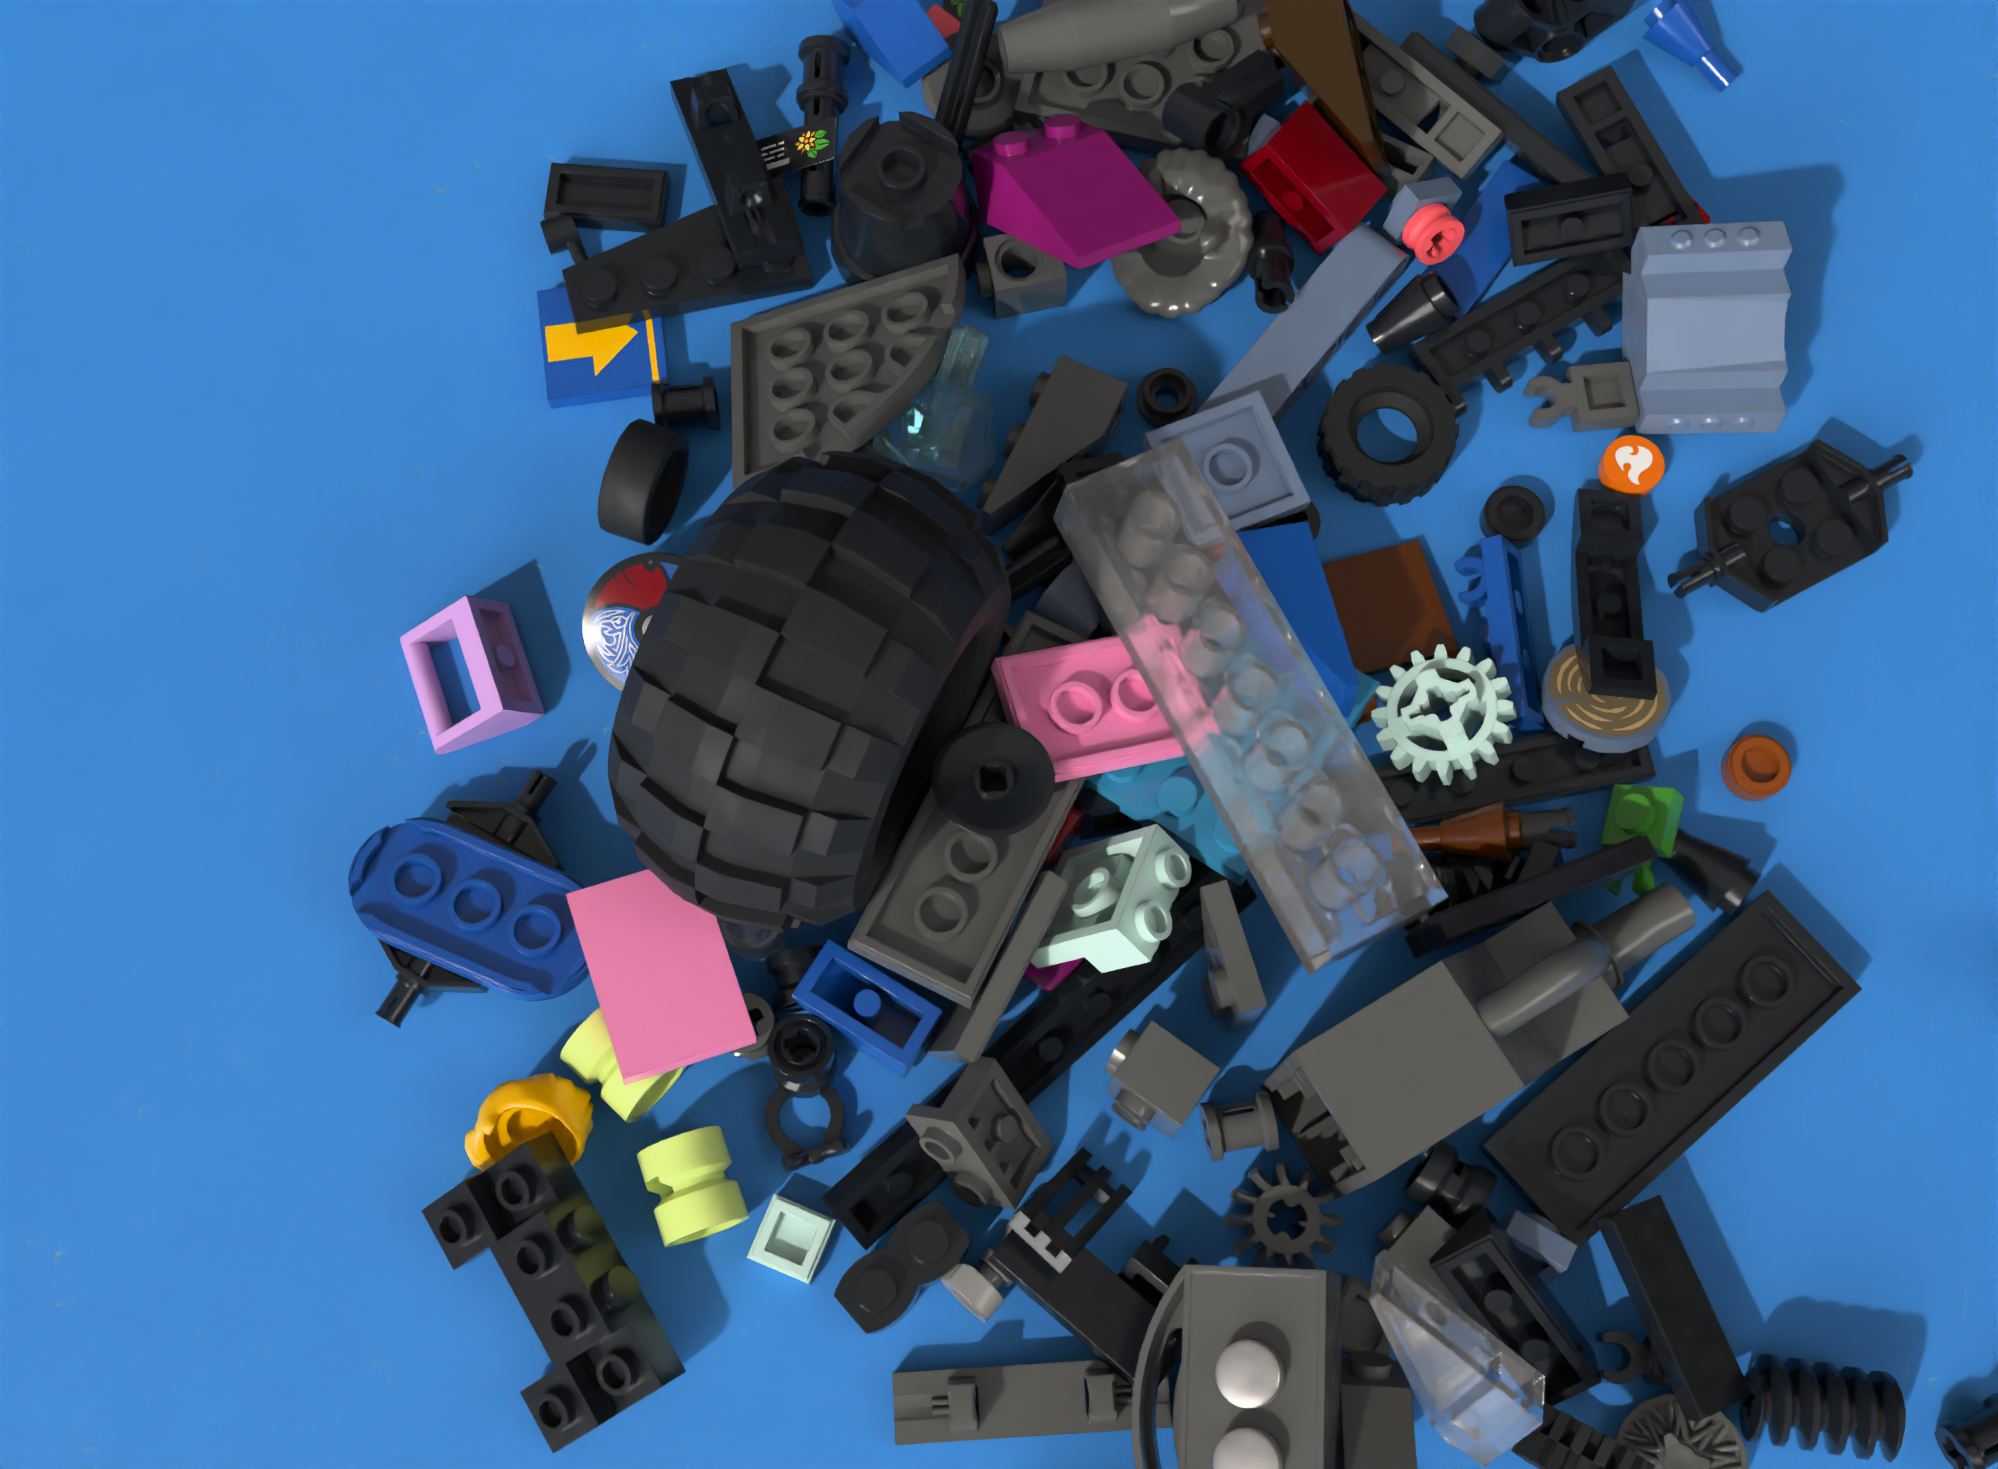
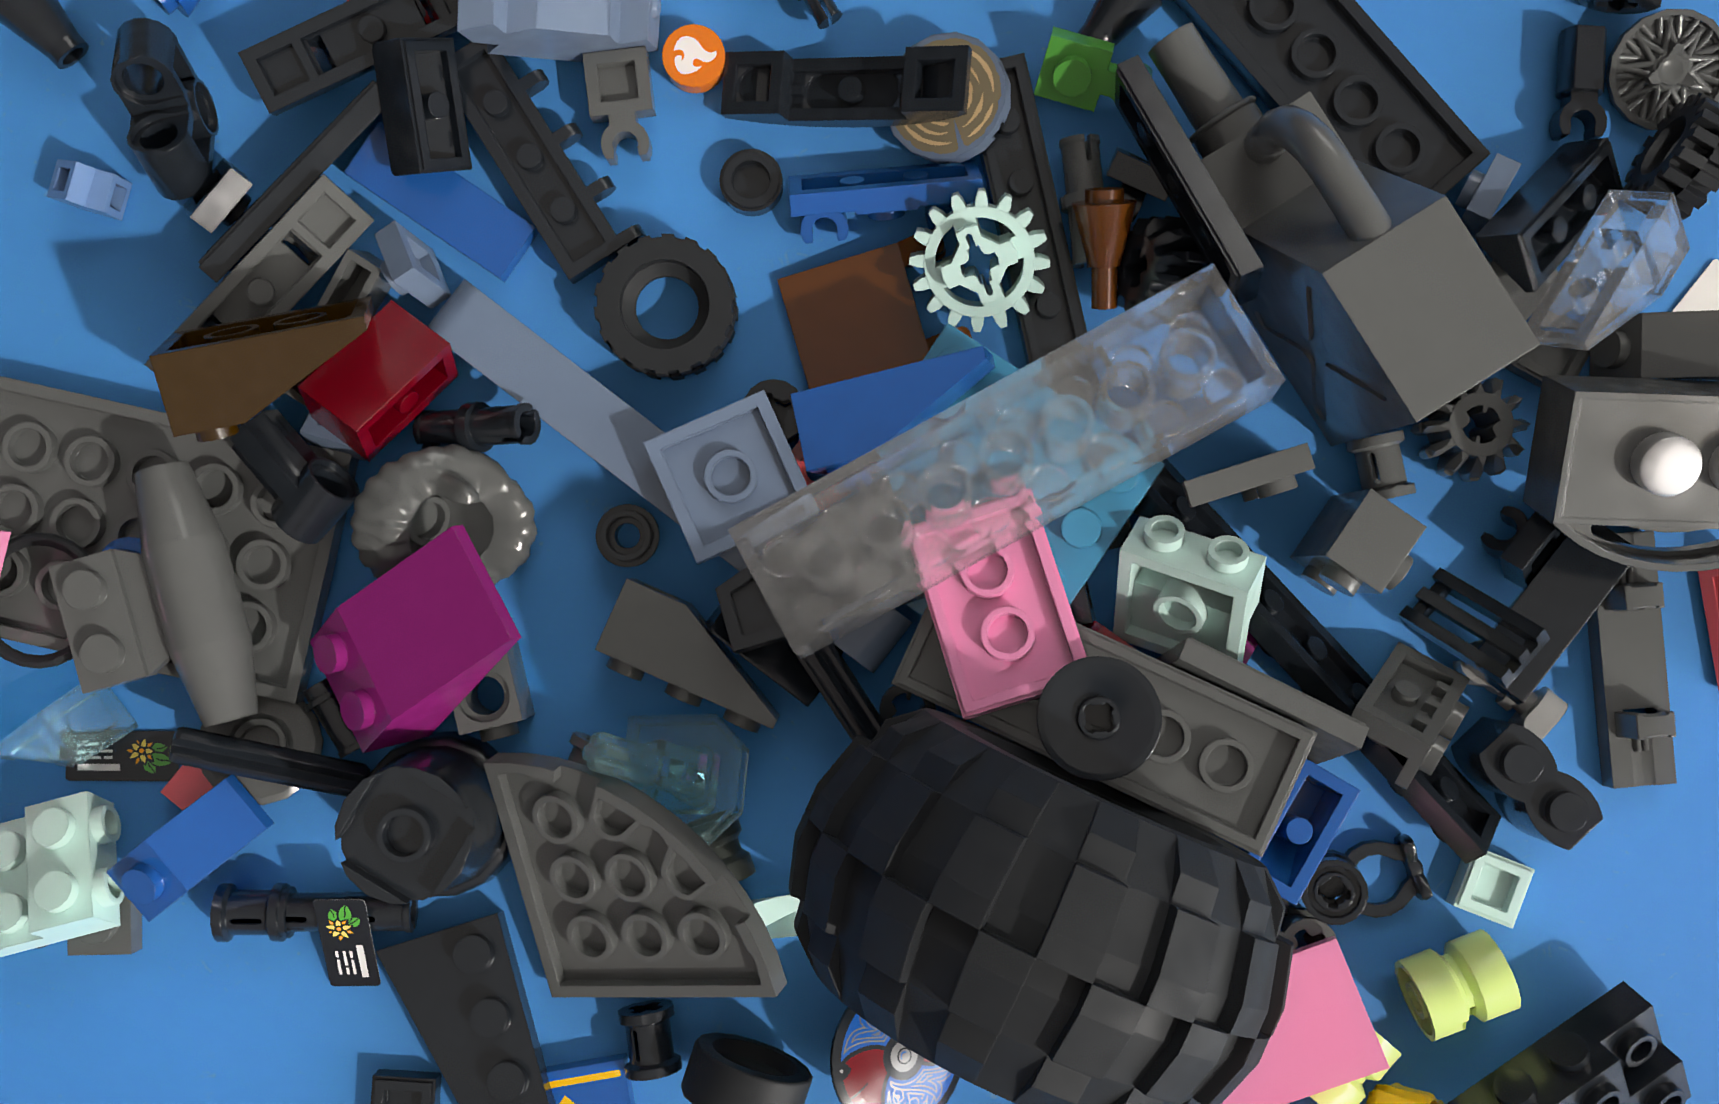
camera: 90 degrees left, 15 degrees up
(733, 169) = (372, 1007): black hinge -> none
(1414, 312) = (531, 274): black cone -> none
(1433, 233) = (441, 253): coral bush -> none
(1674, 1309) = (1548, 66): black slope -> none

